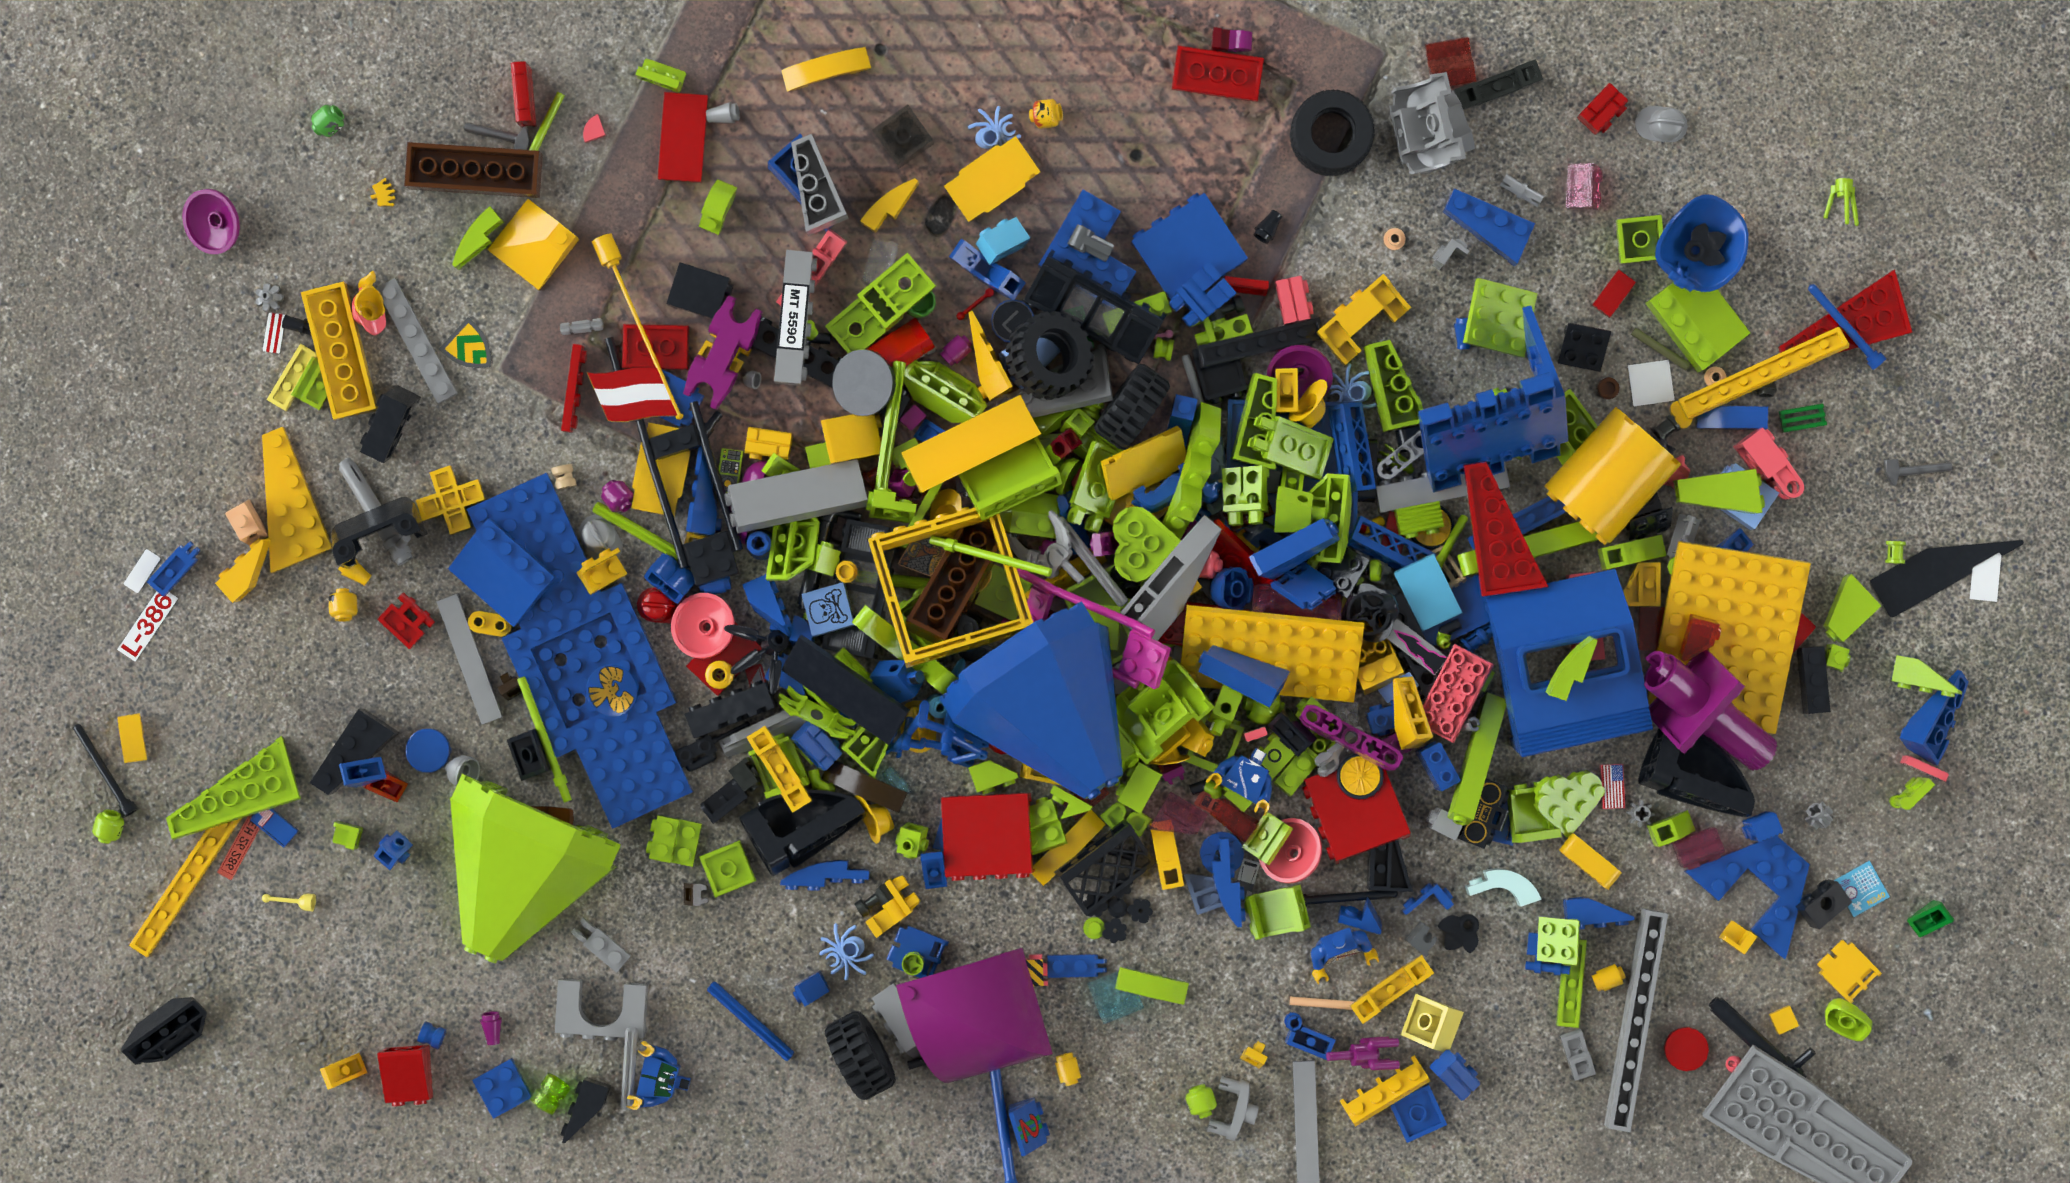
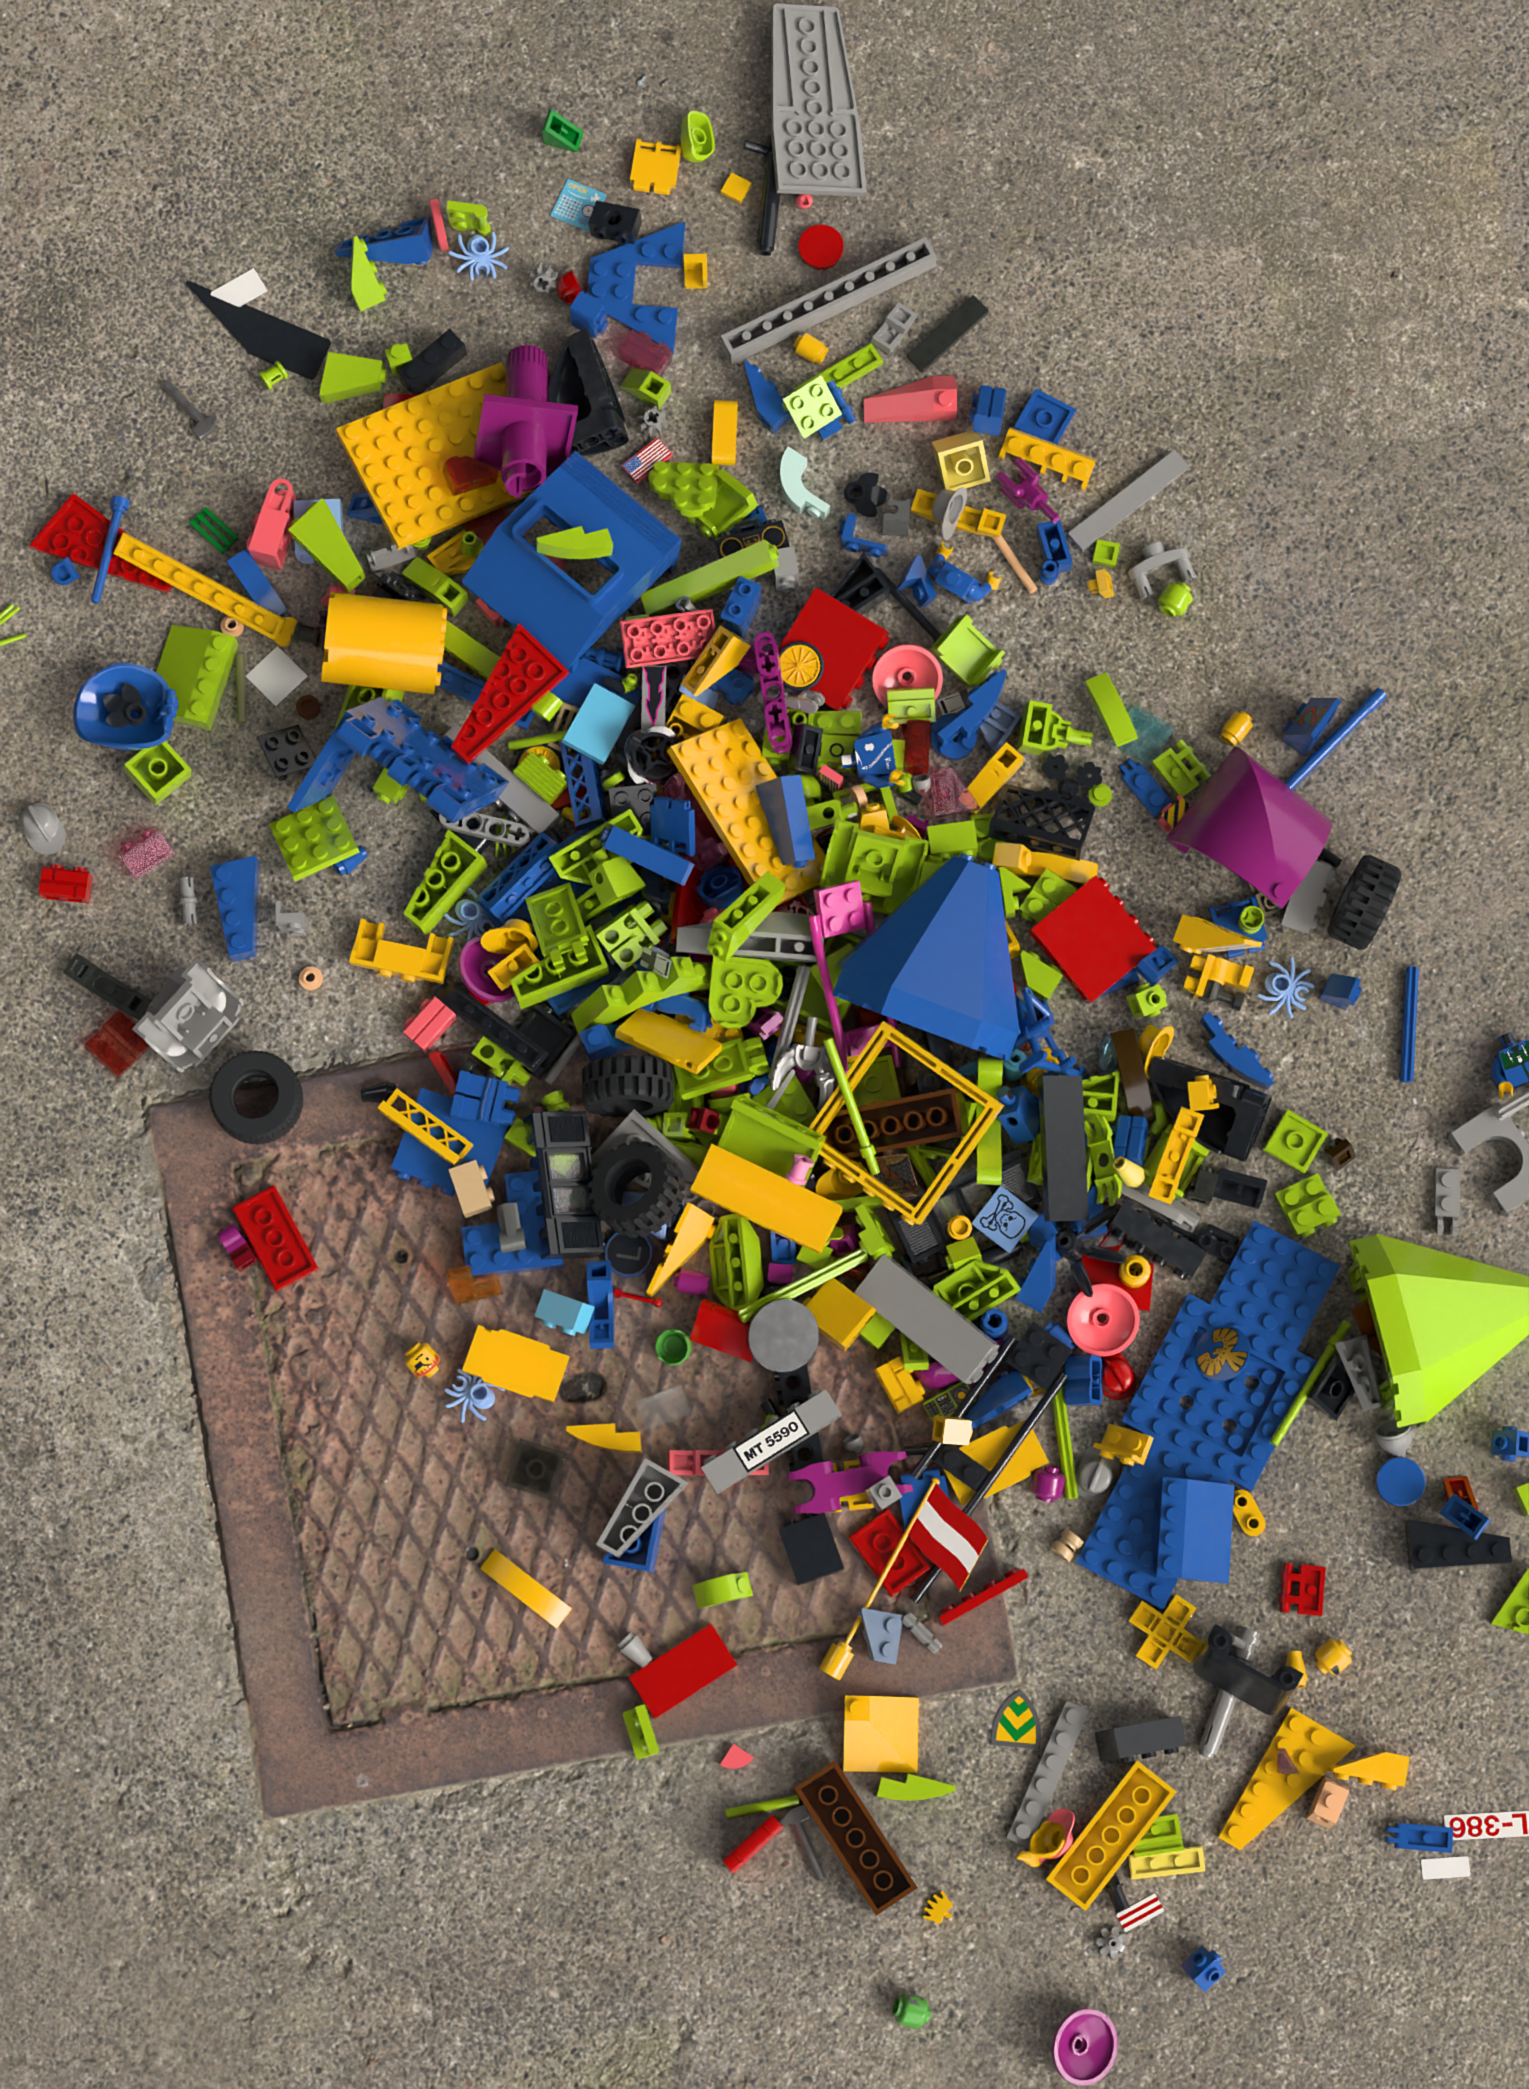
camera: 125 degrees left, 10 degrees down
(201, 346) = (1204, 1967): none -> blue brick
(293, 509) = (1284, 1763): none -> slope
(469, 659) = (1291, 1507): light grey tile -> none
(510, 687) = (1287, 1450): dark brown tile -> none
(526, 783) = (1361, 1370): none -> light grey wing
(601, 296) = (882, 1634): none -> sand blue wing
(694, 367) = (883, 1493): none -> light grey brick
(702, 452) = (952, 1430): none -> brick
(792, 726) = (1129, 1172): none -> light yellow cone
(807, 822) = (1202, 1093): none -> yellow brick
(881, 305) = (703, 1375): lime bracket -> none
(926, 920) = (1202, 935): none -> yellow slope
(972, 483) = (799, 1169): none -> bright pink bush
(1041, 503) = (778, 1094): none -> white sticker
(1068, 997) = (1176, 773): none -> lime plate
(1074, 182) = (468, 1289): none -> clear orange tile
(1093, 823) = (1012, 856): none -> yellow brick
(1142, 238) = (471, 1189): none -> tan brick
(1174, 922) = (1046, 730): none -> lime brick
(1189, 582) = (744, 916): none -> lime slope
(1204, 801) = (921, 782): none -> light grey hinge
(1207, 494) = (655, 962): none -> sticker
(1210, 230) = (418, 1132): none -> yellow fence
(1224, 743) = (858, 796): none -> light nougat tile
(1277, 1078) = (1106, 553): none -> lime tile
(1400, 982) = (948, 508): none -> light grey piece
(1505, 1029) = (919, 401): none -> coral wedge
(1542, 1092) = (948, 334): none -> pearl dark grey tile
(1613, 293) = (221, 761): red tile -> none
(1636, 601) = (473, 548): none -> lime cone
(1797, 830) = (568, 287): none -> red piece
(1852, 281) = (64, 572): none -> blue tile
(1876, 781) = (479, 255): none -> light blue animal

